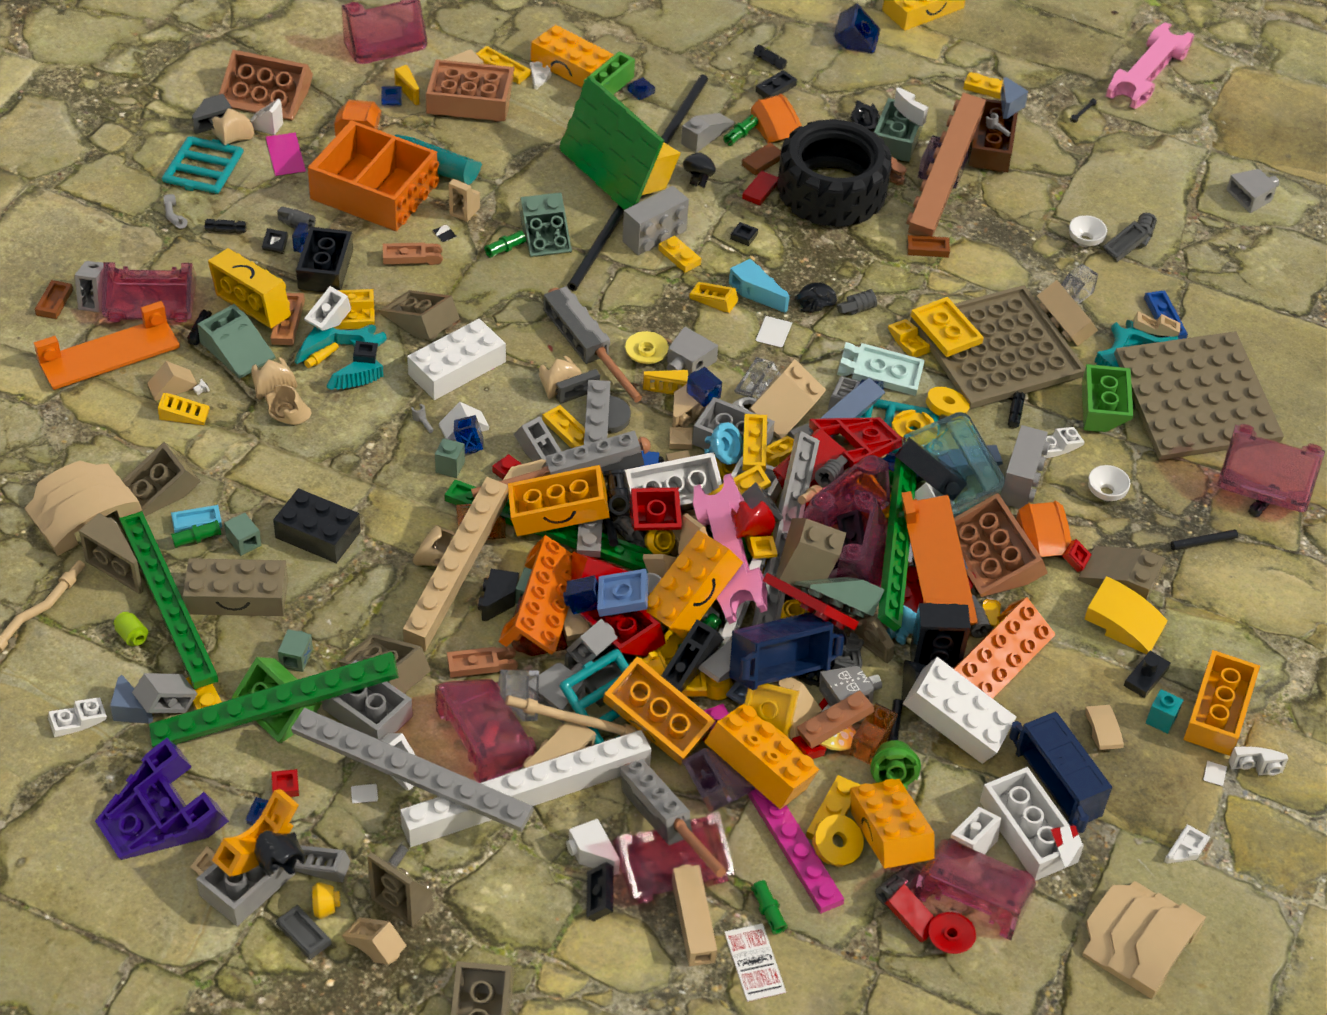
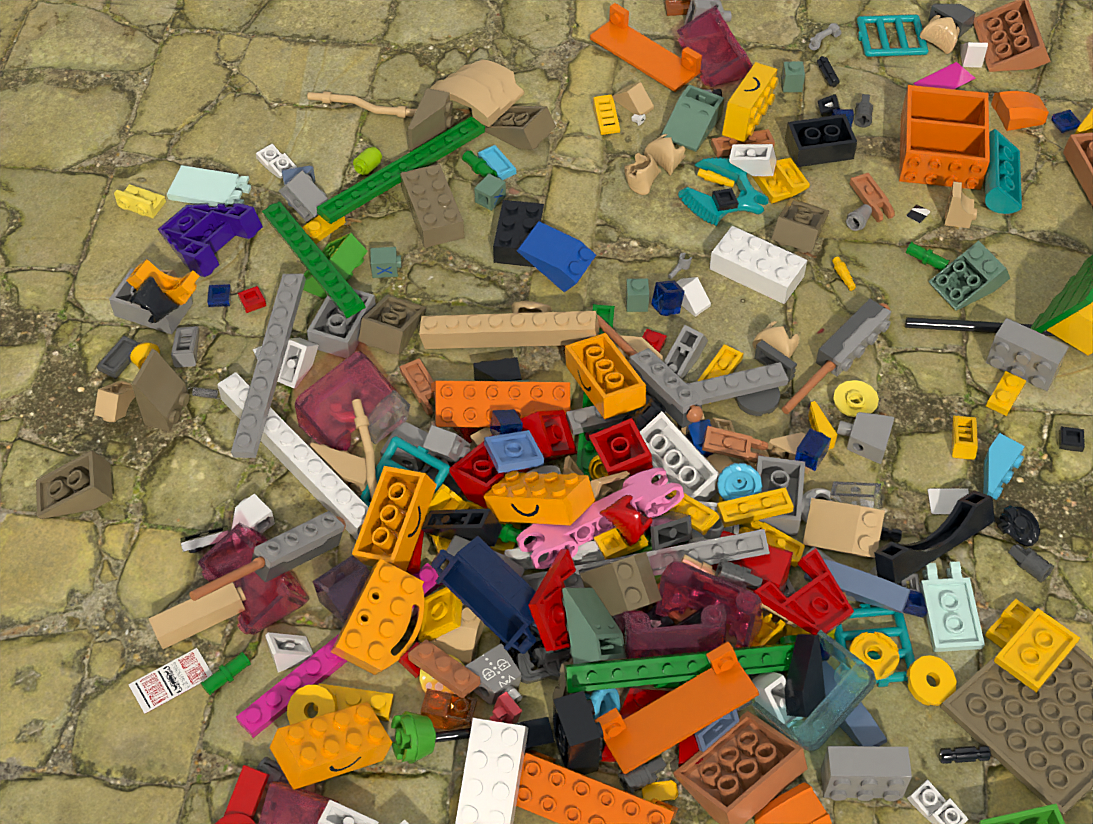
camera: 75 degrees right, 5 degrees up
(62, 866) = (140, 201): none -> light yellow bracket
(80, 792) = (208, 187): none -> light aqua tile
(219, 243) = (792, 76): none -> sand green brick
(376, 497) = (556, 255): none -> blue slope
(433, 271) = (858, 218): none -> light grey cone
(489, 306) = (843, 272): none -> yellow animal
(670, 441) = (732, 444): none -> nougat hinge
(762, 850) = (288, 650): none -> white slope
(821, 345) = (967, 518): none -> black arch
(886, 690) = (506, 710): none -> coral tile

